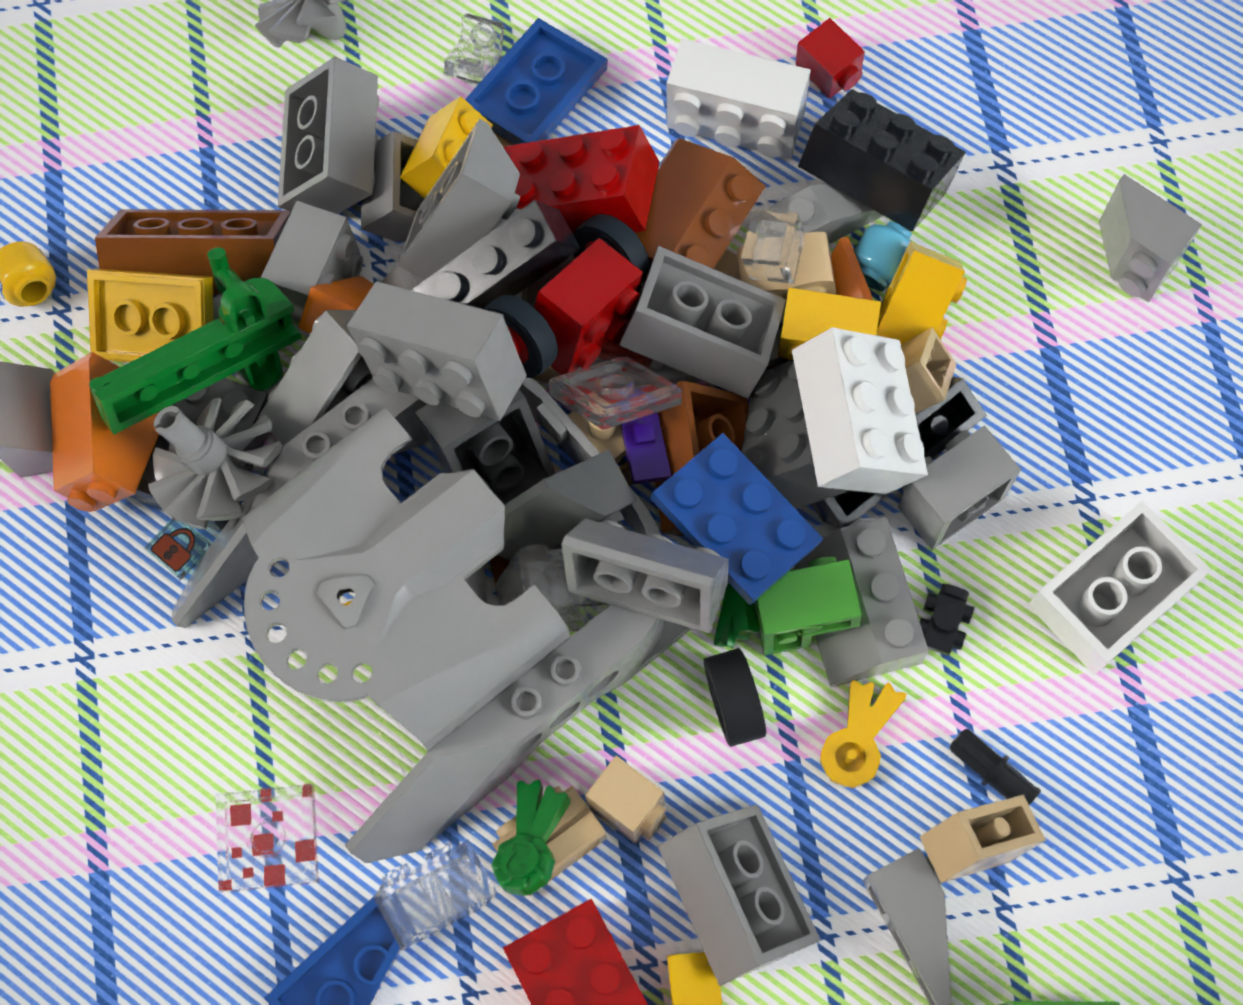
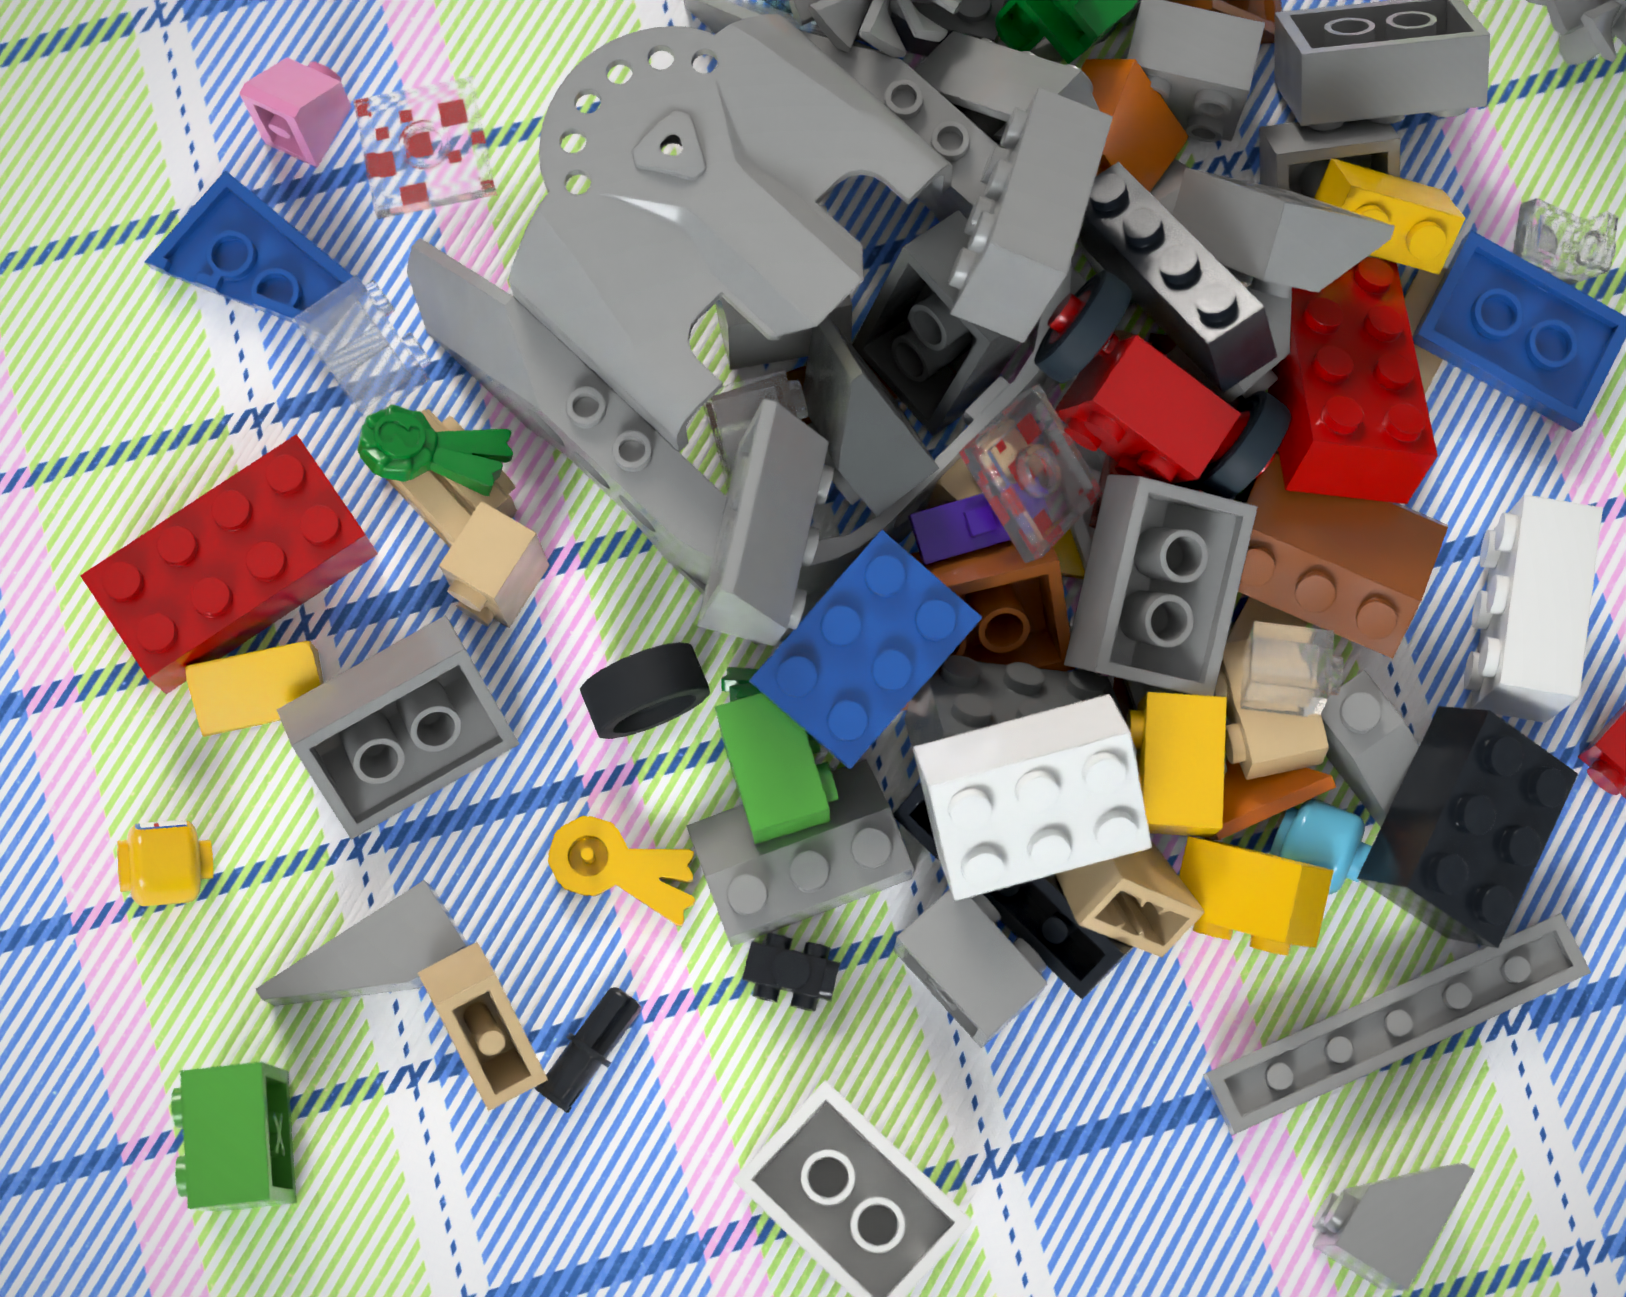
camera: 80 degrees right, 5 degrees up
(221, 932) = (297, 108): none -> bright pink slope
(1009, 231) = (1396, 1024): none -> light grey plate

